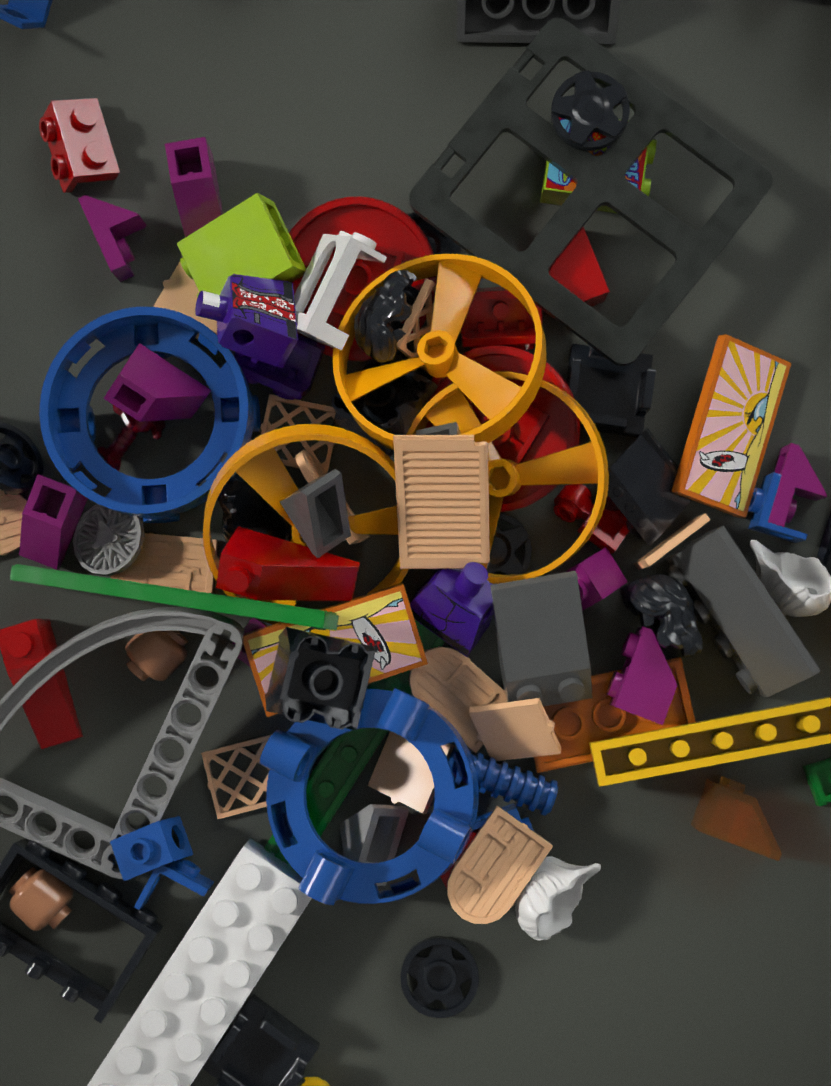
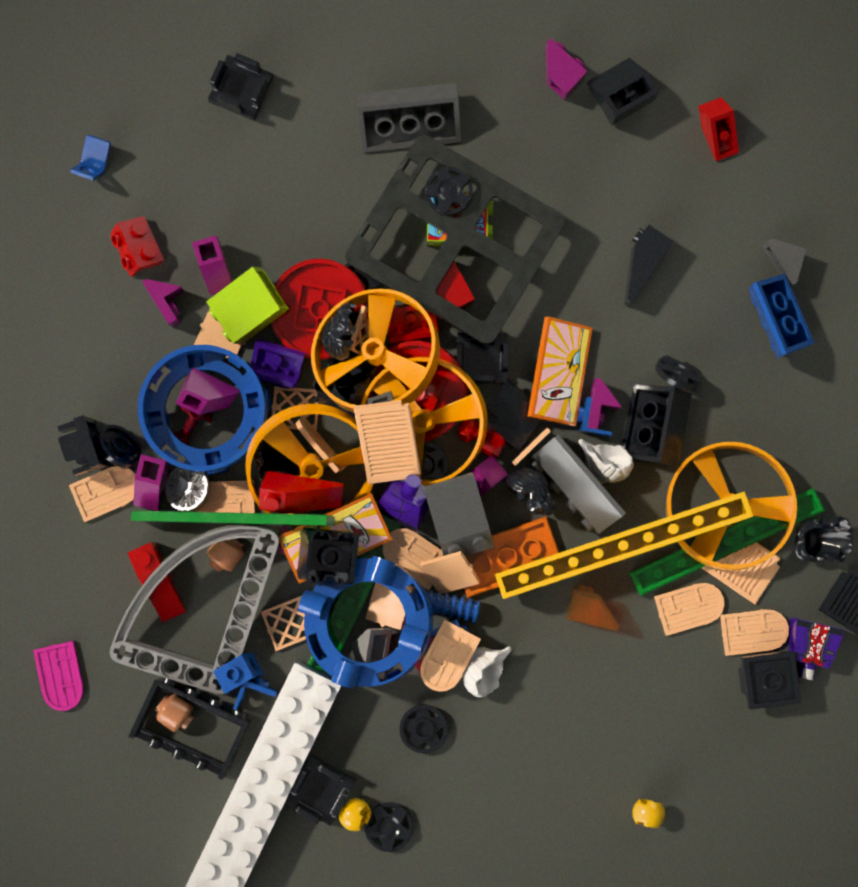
camera: 15 degrees left, 0 degrees up
(253, 317) = (260, 343): dark purple torso -> none
(320, 512) = (315, 456): dark grey slope -> none
(347, 250) = (312, 297): white panel -> none
(646, 679) = (525, 532): magenta slope -> none

